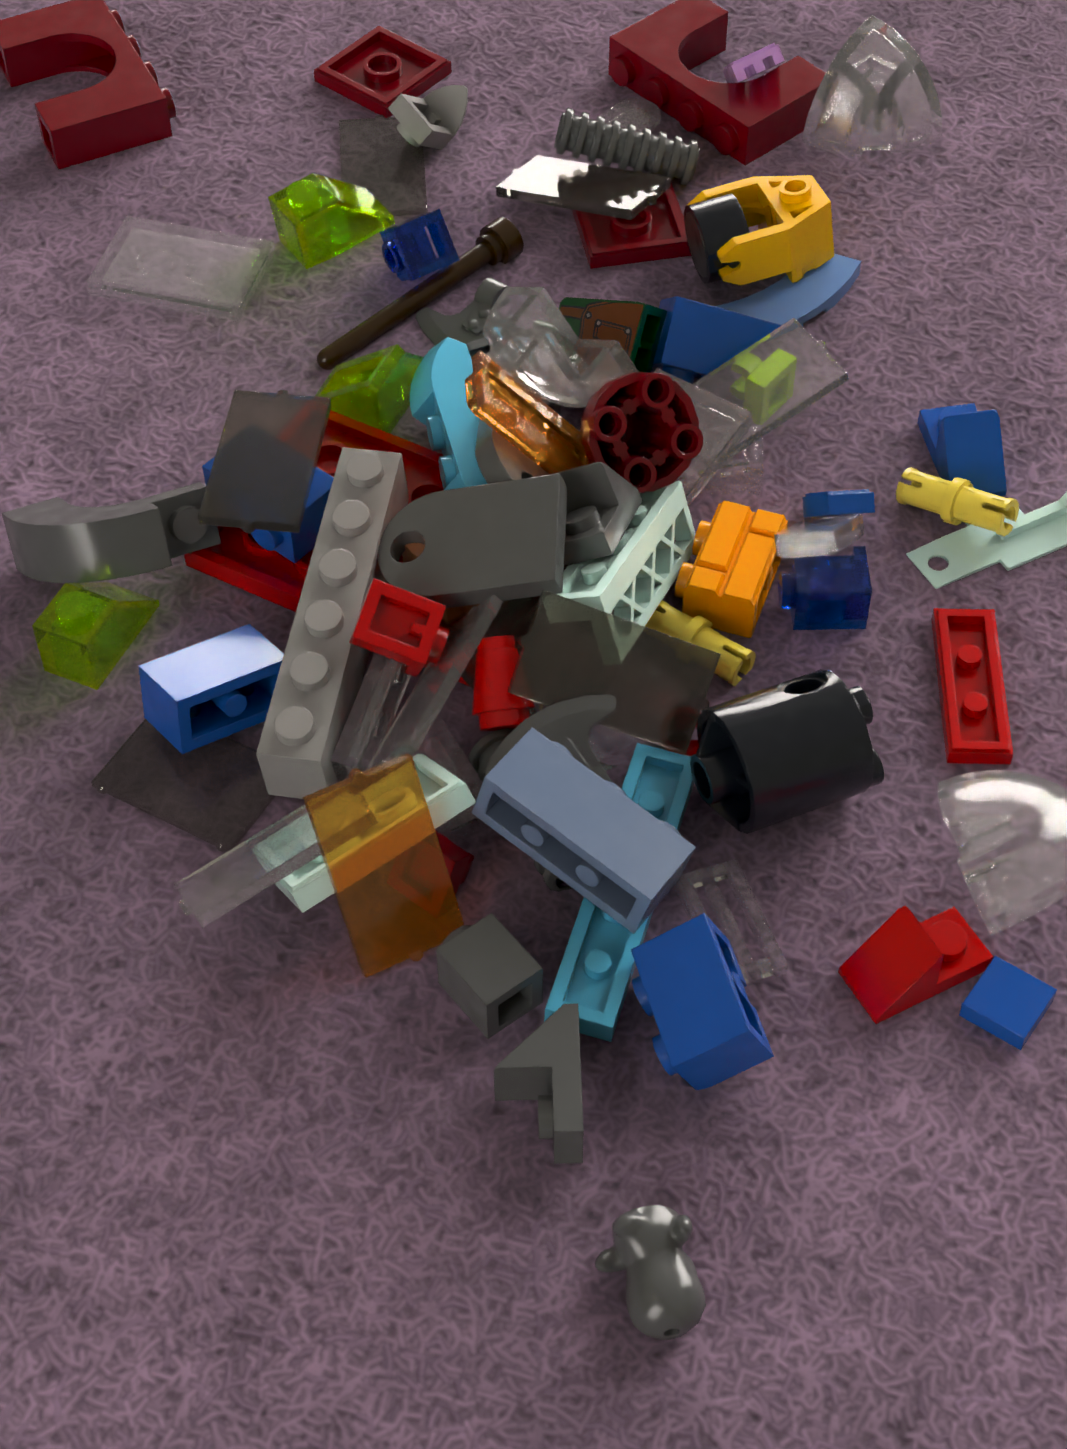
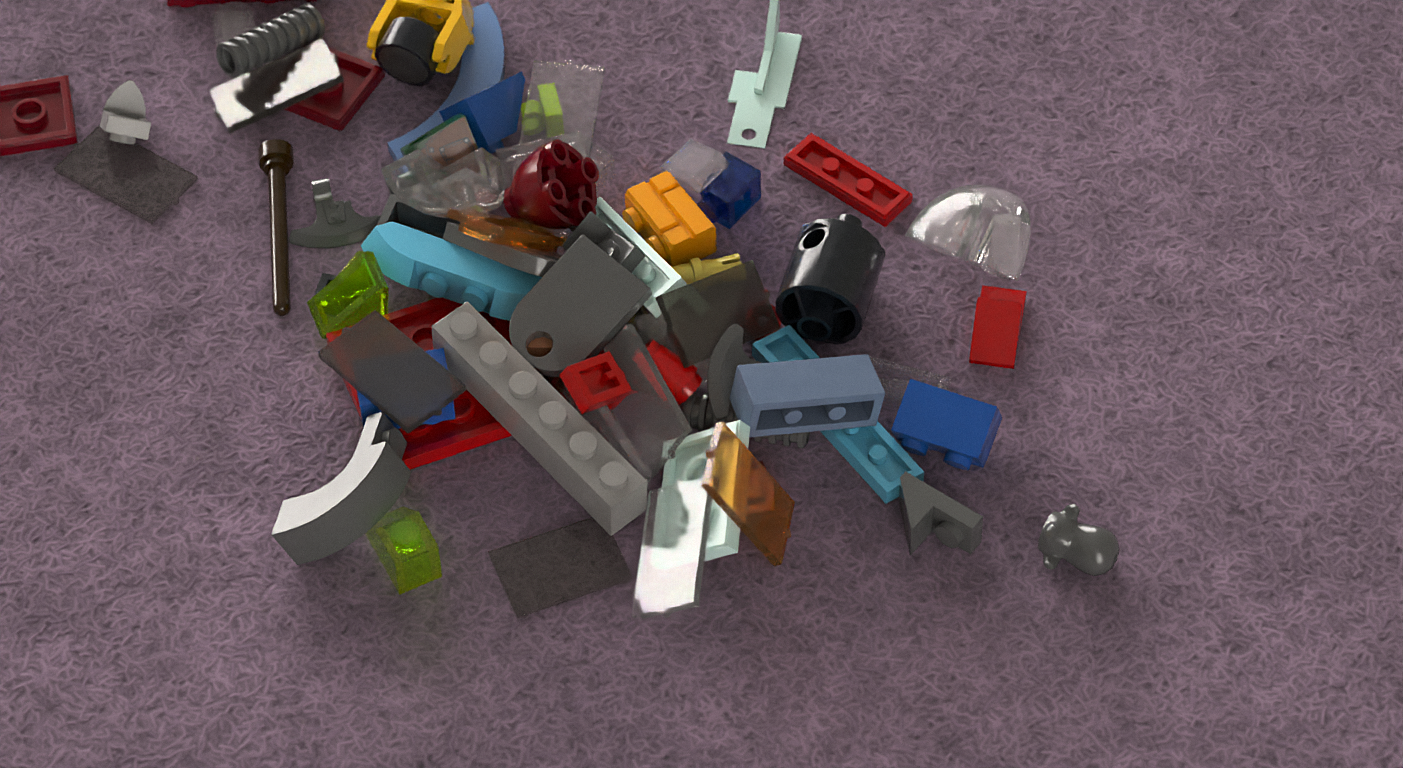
camera: 50 degrees left, 0 degrees up
(182, 268) = (111, 332): clear tile -> none
(210, 687) = (523, 507): blue brick -> none
(325, 217) = (161, 231): clear neon green slope -> none
(410, 251) = (237, 203): clear blue brick -> none
(489, 974) = (839, 504): dark grey brick -> none
(838, 503) = (670, 145): blue tile -> none
(957, 501) = (723, 92): light yellow pin -> none
(966, 445) = (686, 63): blue slope -> none
(1007, 1002) = (1054, 305): blue tile -> none

